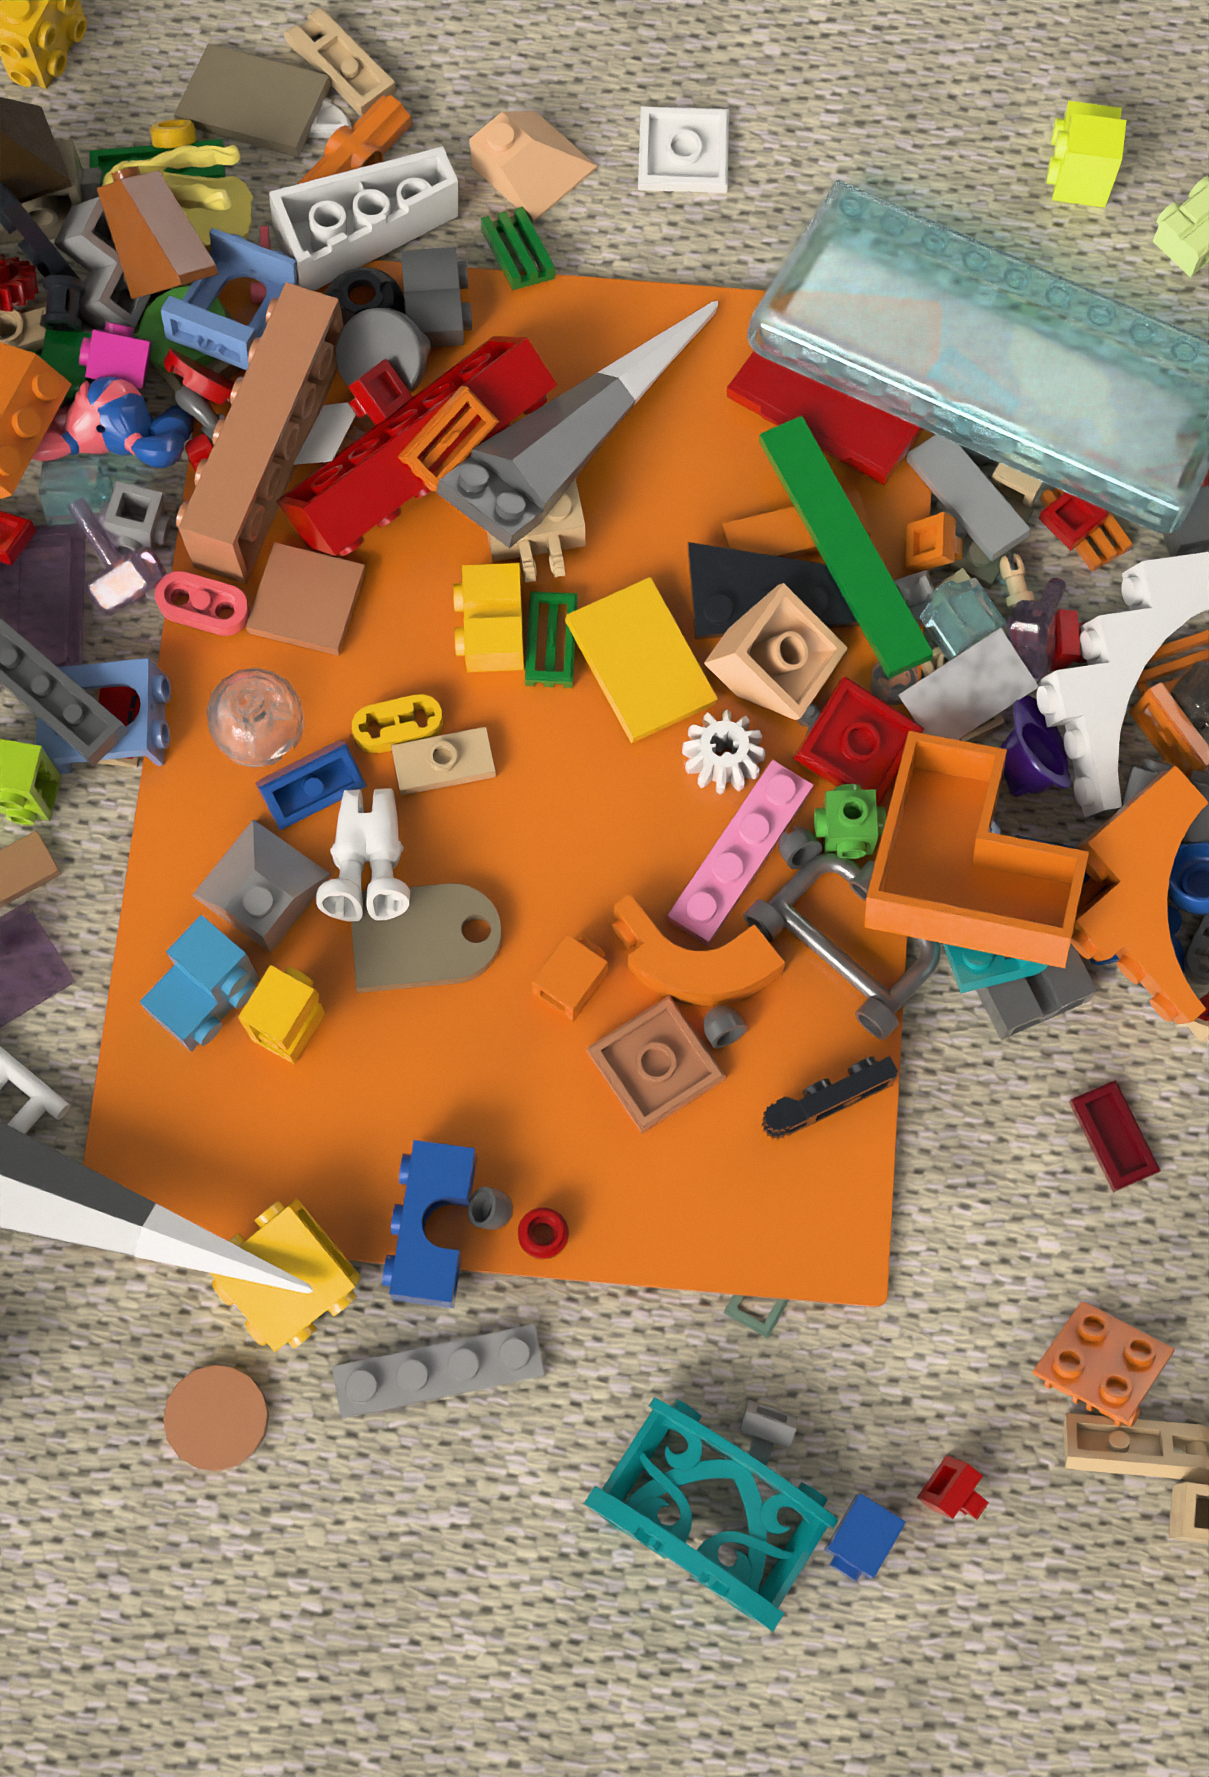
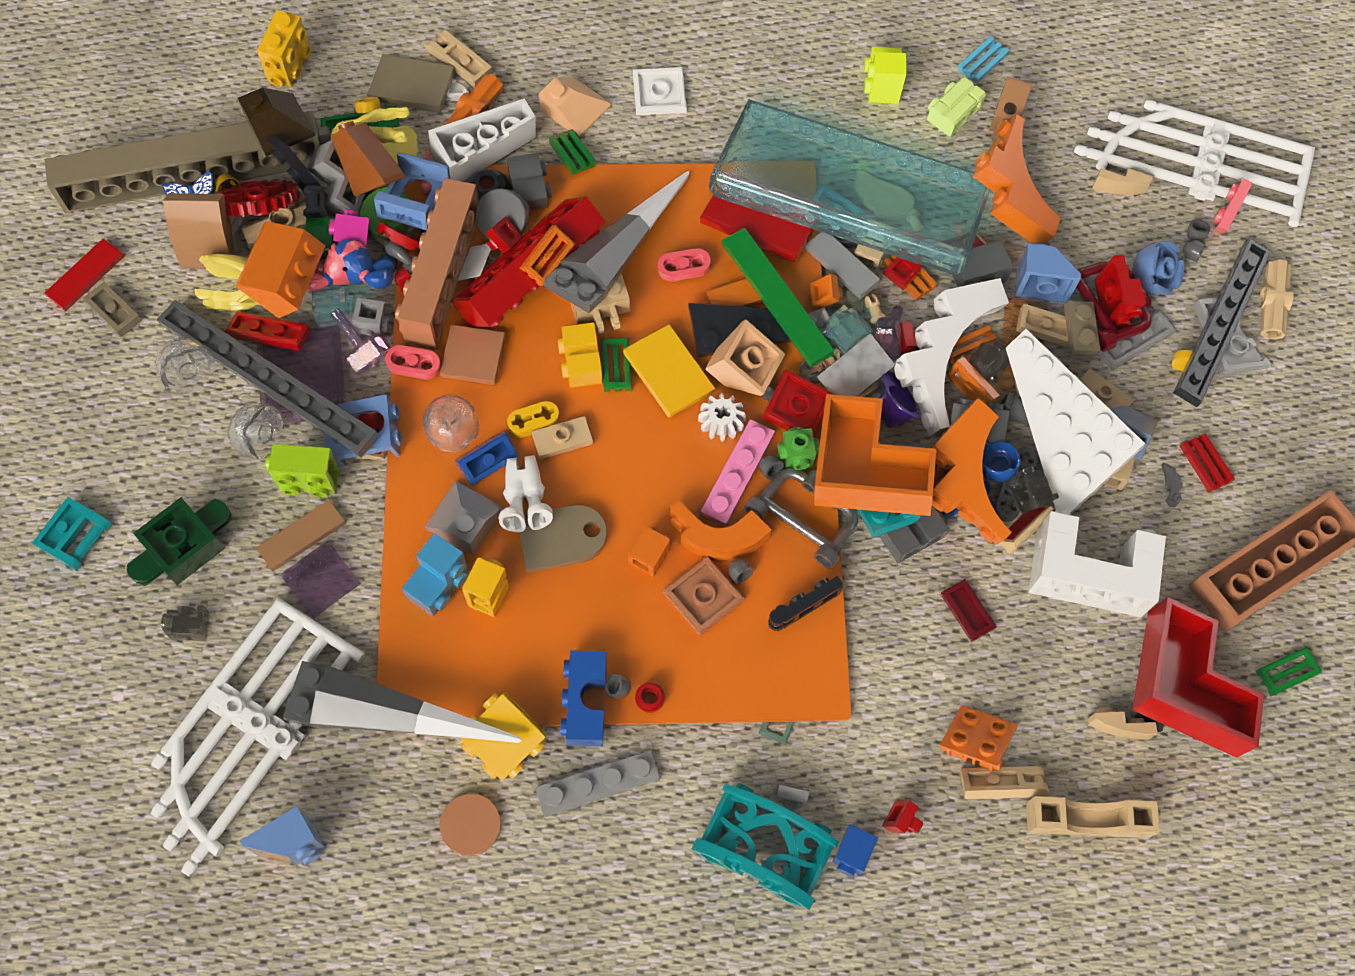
camera: 10 degrees left, 5 degrees down
(688, 468) = (683, 264): none -> coral plate

